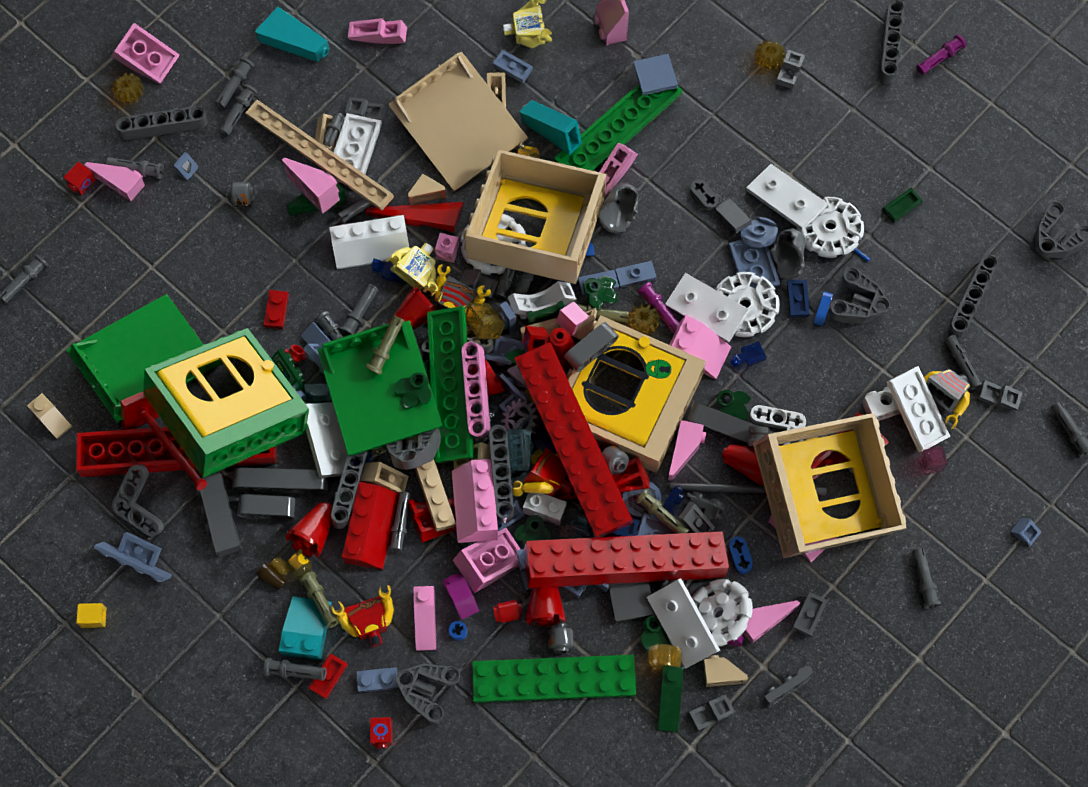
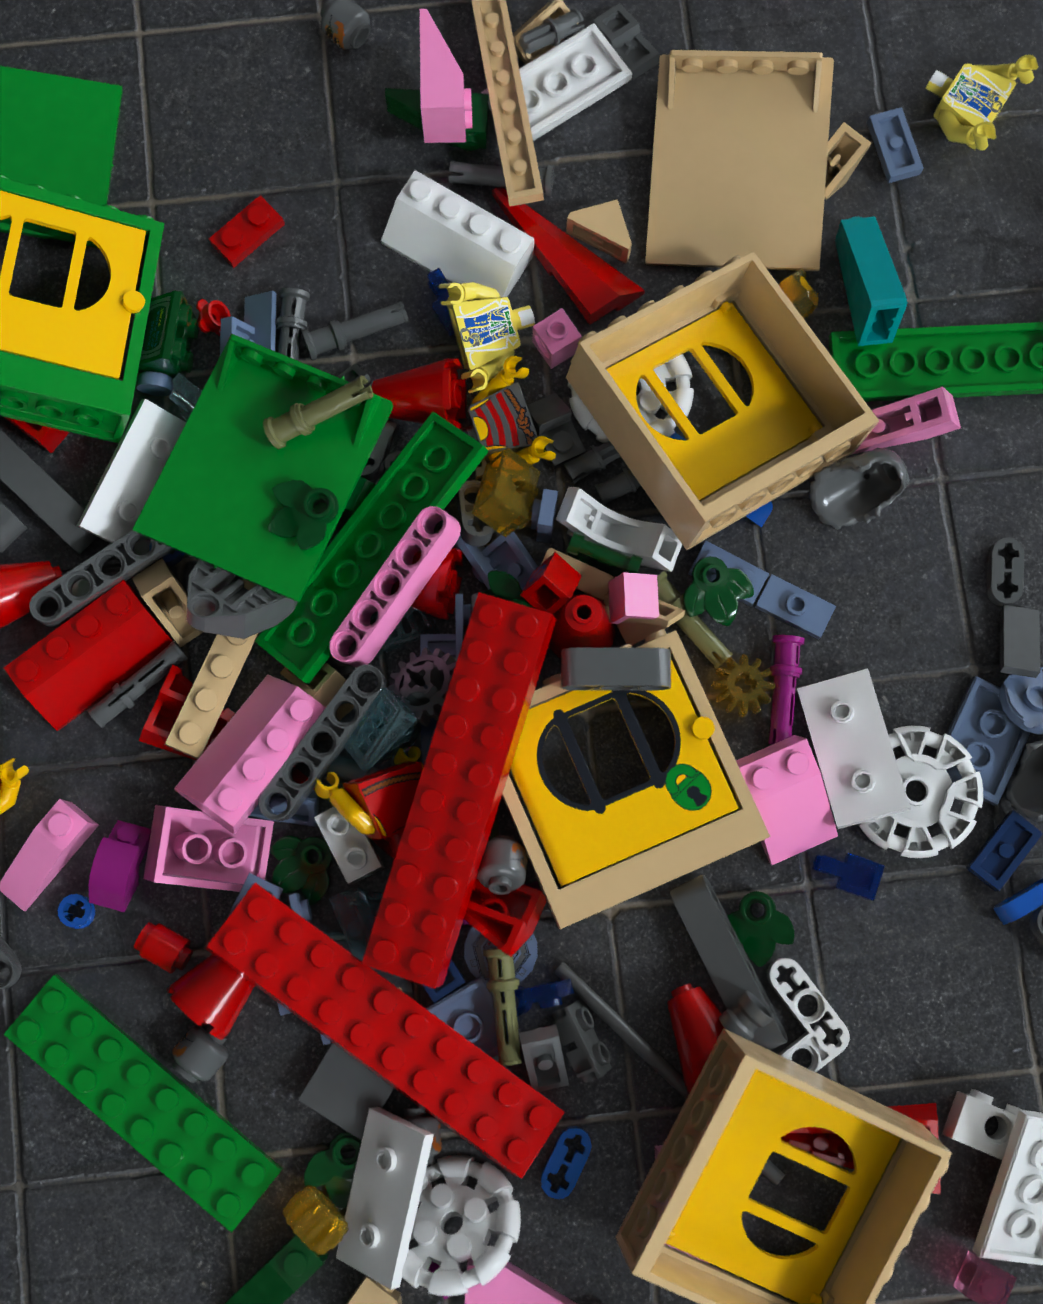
camera: 40 degrees right, 10 degrees up
(687, 444) = (636, 928): bright pink slope -> none

